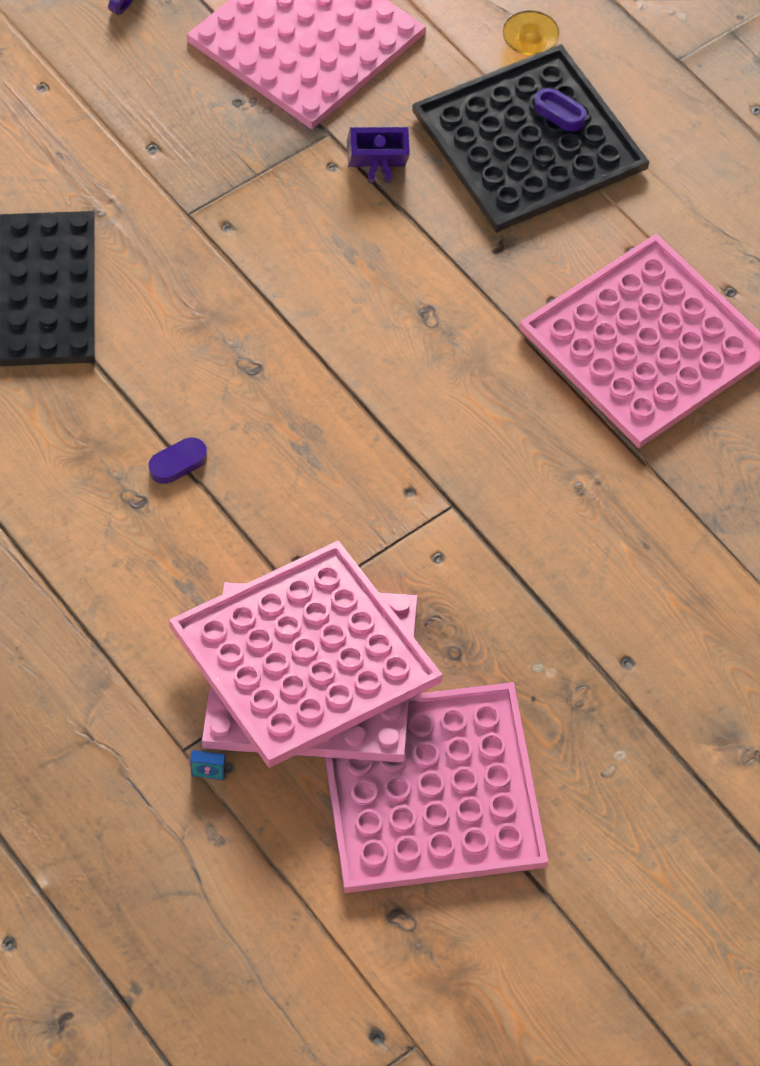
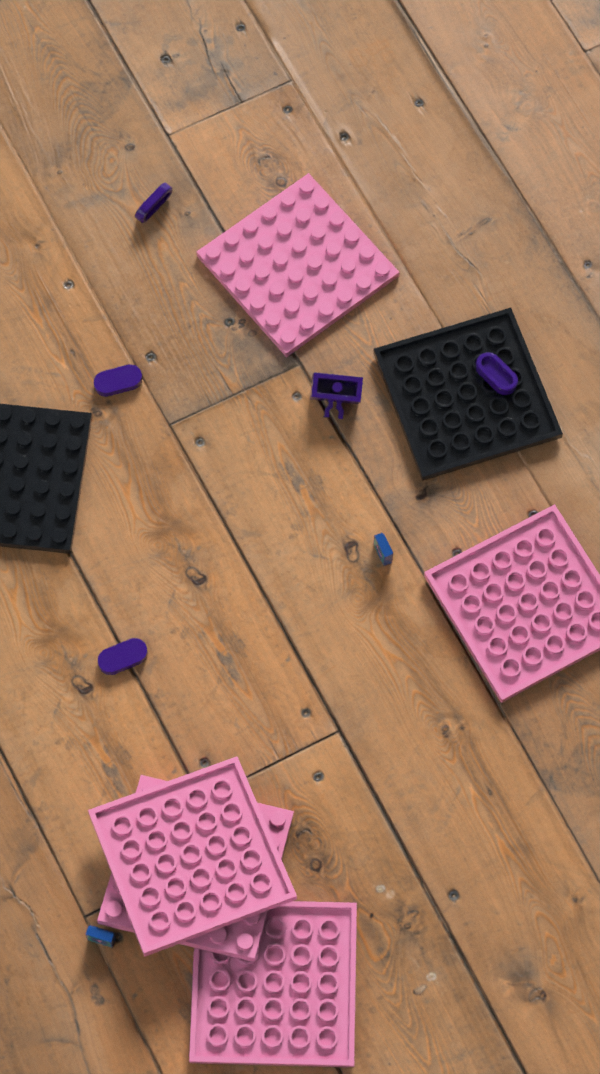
camera: 10 degrees right, 10 degrees up
(118, 175) = (118, 380): none -> dark purple tile
(466, 305) = (383, 549): none -> blue tile
(530, 32) = (489, 283): clear yellow dish -> none

